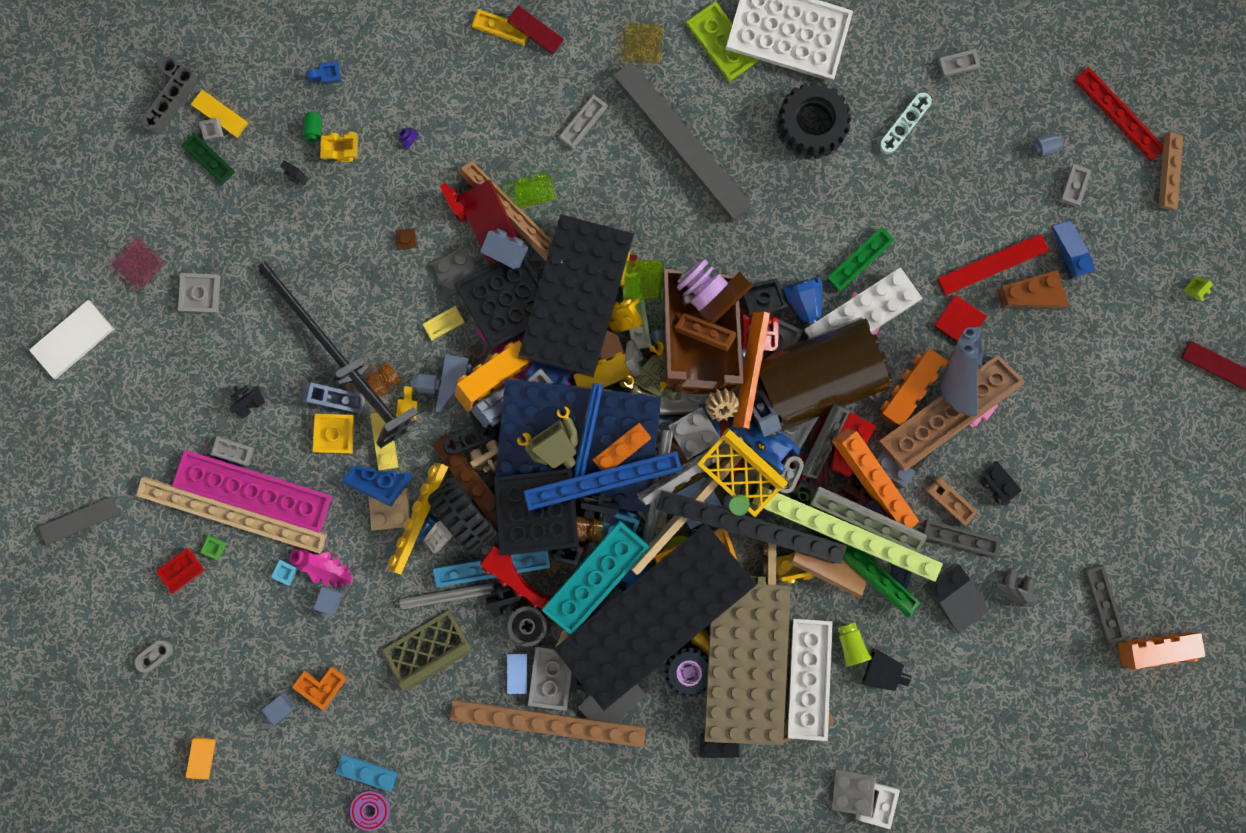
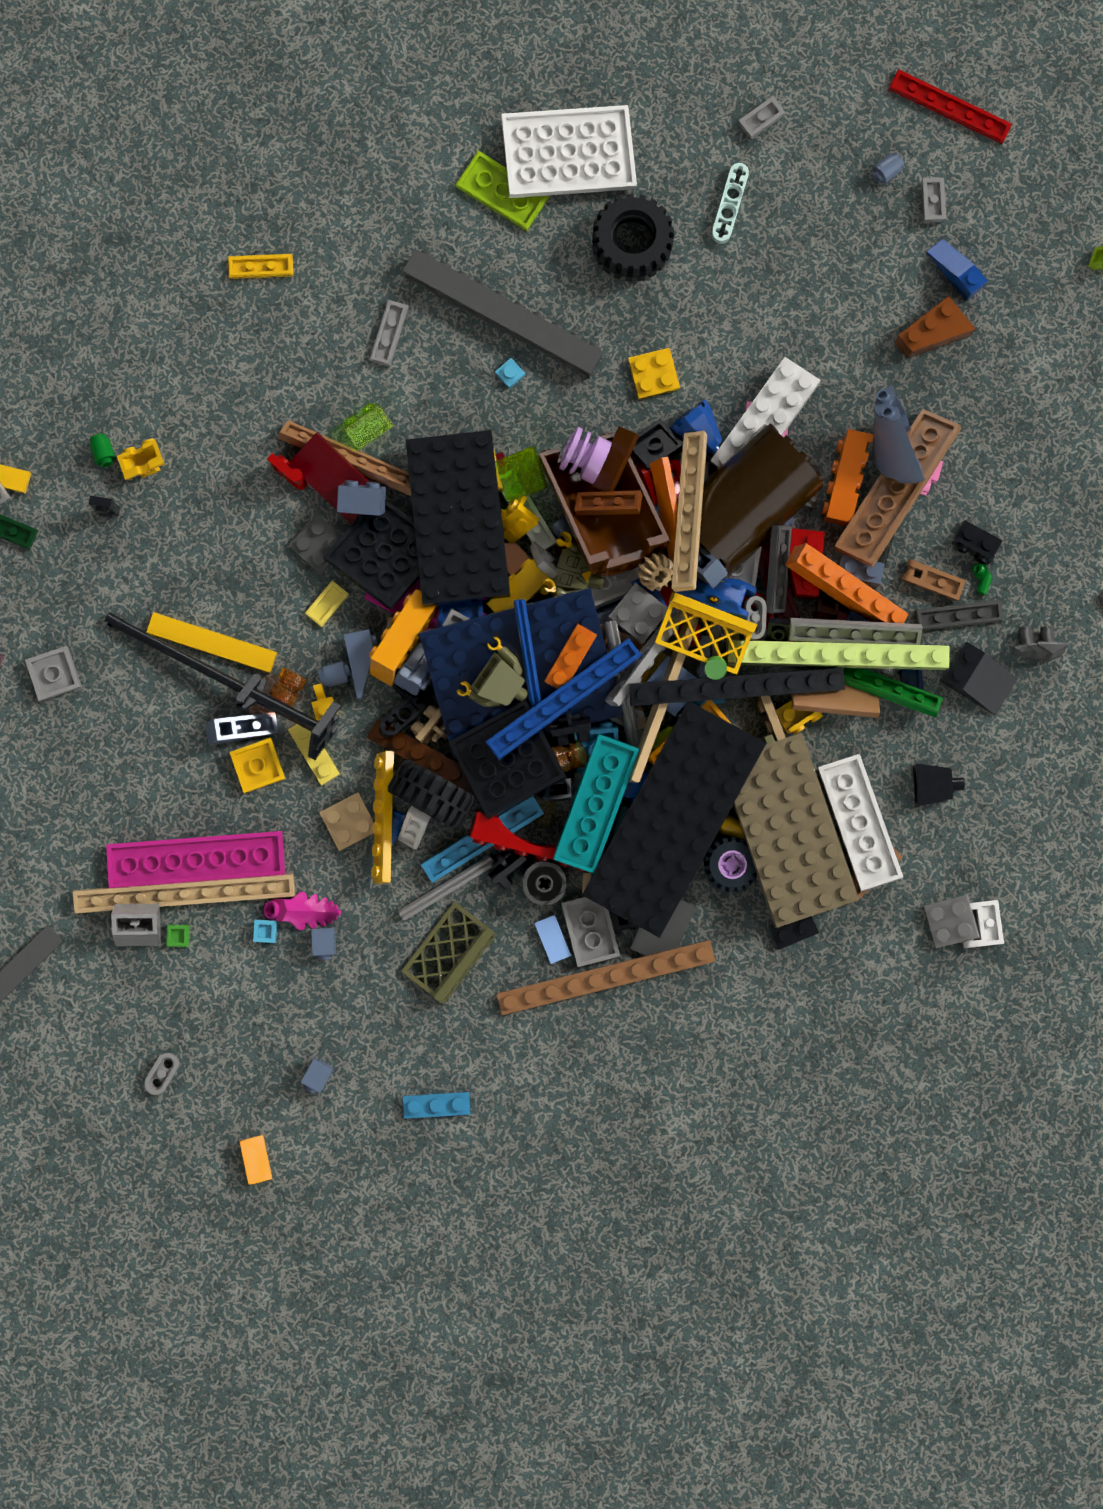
camera: 25 degrees left, 0 degrees up
(180, 570) = (154, 973): red plate -> none
(181, 525) = (136, 924): none -> light grey slope
(232, 451) = (157, 826): light grey plate -> none
(239, 406) = (145, 776): black hips -> none
(321, 691) = (351, 1041): orange plate -> none
(328, 73) = (96, 385): blue plate -> none
(337, 318) = (211, 642): none -> yellow tile
(358, 814) = (446, 1152): medium lavender tile -> none
(377, 484) = (325, 800): blue wing -> none
(406, 239) = (251, 530): reddish brown plate -> none
(407, 137) = (208, 421): dark purple plate -> none
(535, 30) = (299, 255): dark red tile -> none
(643, 43) = (419, 224): clear yellow tile -> none
(668, 193) = (510, 373): none -> medium azure plate
(769, 366) = (689, 511): none -> tan plate
(786, 239) = (654, 373): none -> yellow plate
(853, 645) = (890, 769): lime plant -> none
(860, 259) = (739, 364): green plate -> none
(958, 317) = (864, 385): red tile -> none
(992, 264) = (880, 316): red tile -> none
(994, 515) = (984, 578): none -> green arm
(1170, 171) = (1026, 146): medium nougat plate -> none

